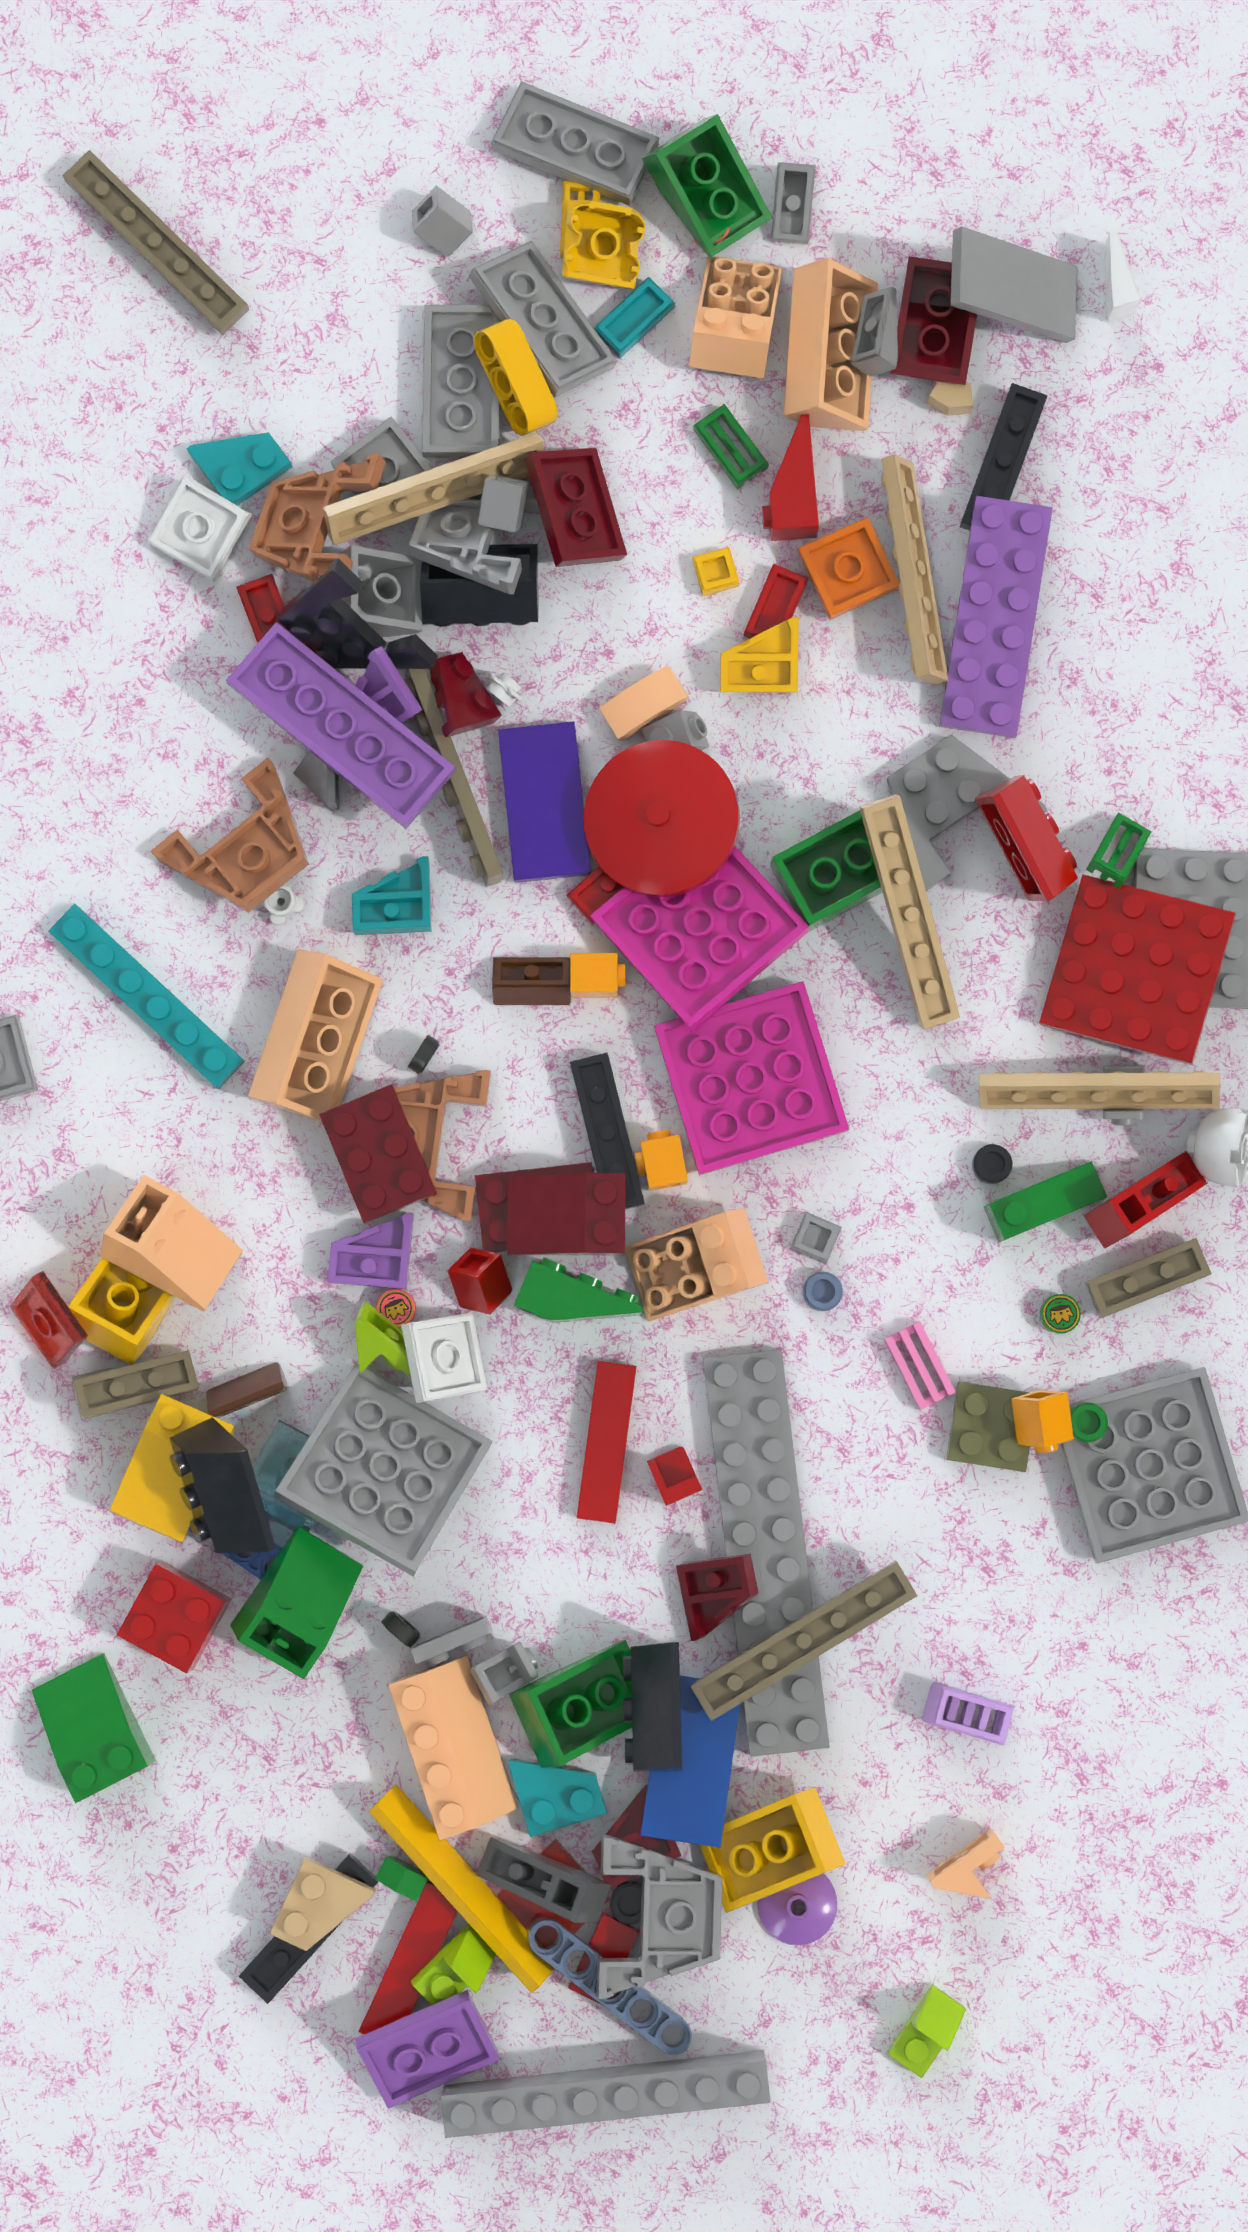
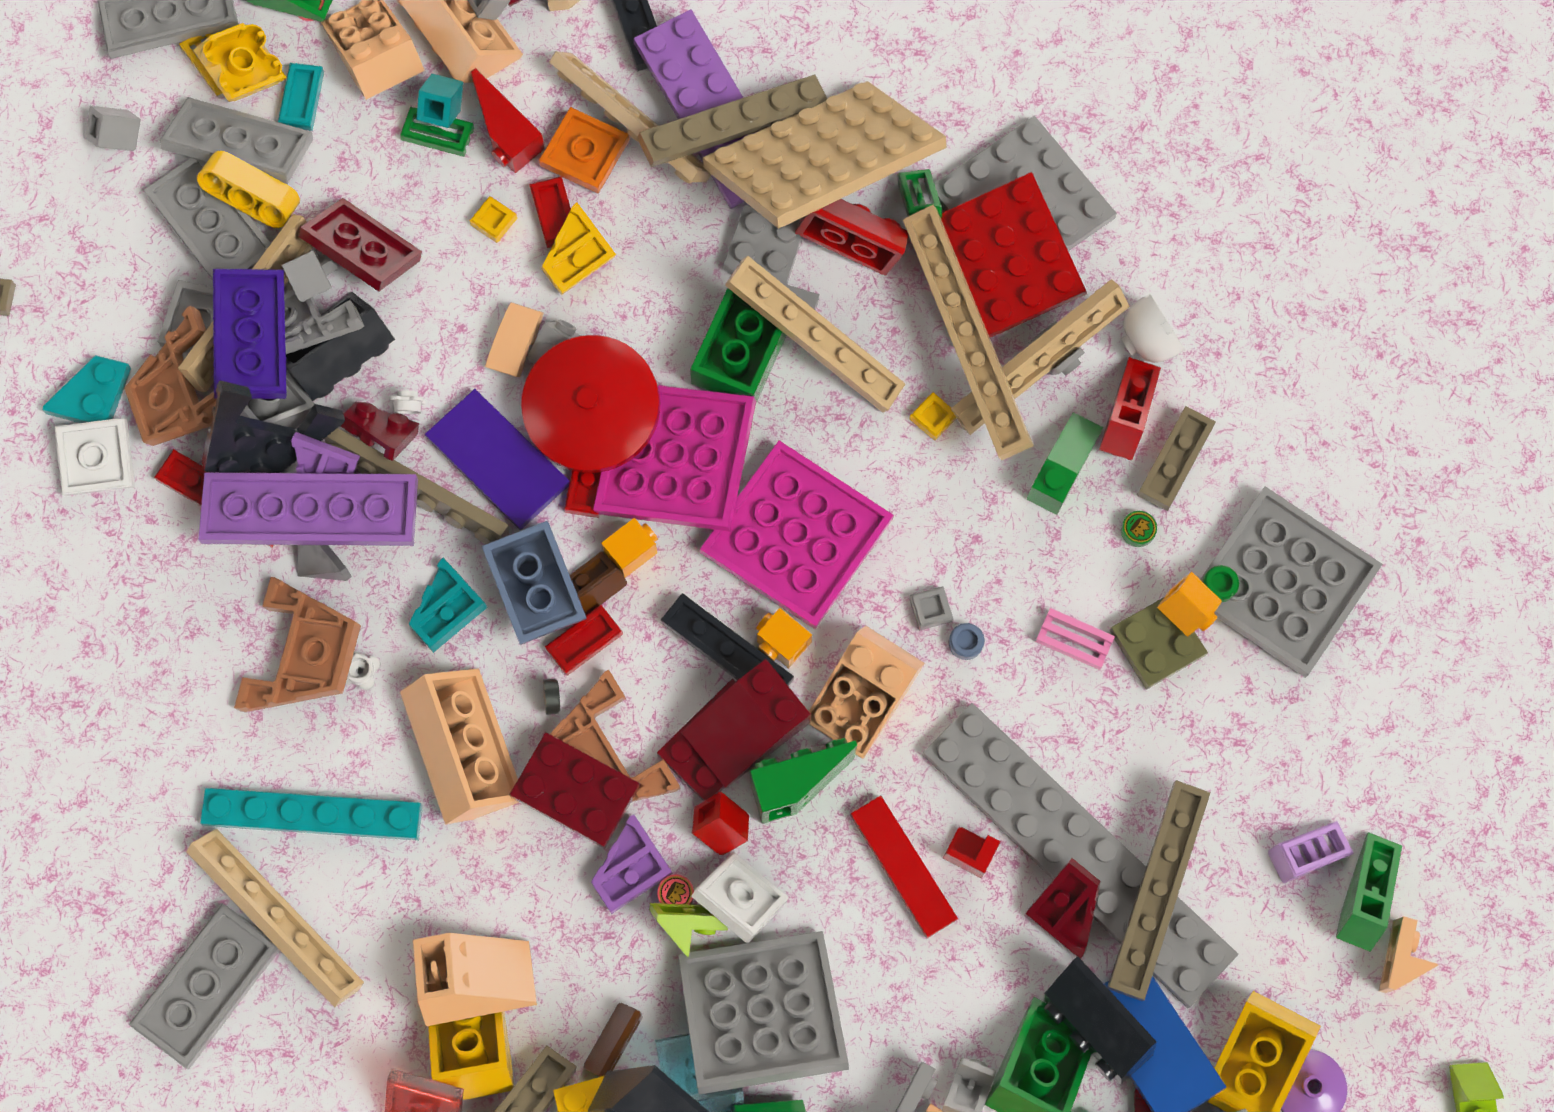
camera: 45 degrees left, 10 degrees down
(49, 1061) = (275, 917): none -> tan plate
(408, 522) = (250, 331): none -> dark purple tile
(484, 944) = (534, 582): none -> sand blue slope
(491, 1025) = (584, 640): none -> red tile
(752, 421) = (439, 100): none -> teal brick
(961, 1065) = (933, 416): none -> yellow tile
(988, 1789) = (1370, 893): none -> green slope
(992, 1164) = (1009, 469): black tile -> none
(1003, 648) = (729, 121): none -> dark tan plate
(1048, 1017) = (968, 333): none -> tan plate
(1056, 747) = (823, 153): none -> tan plate

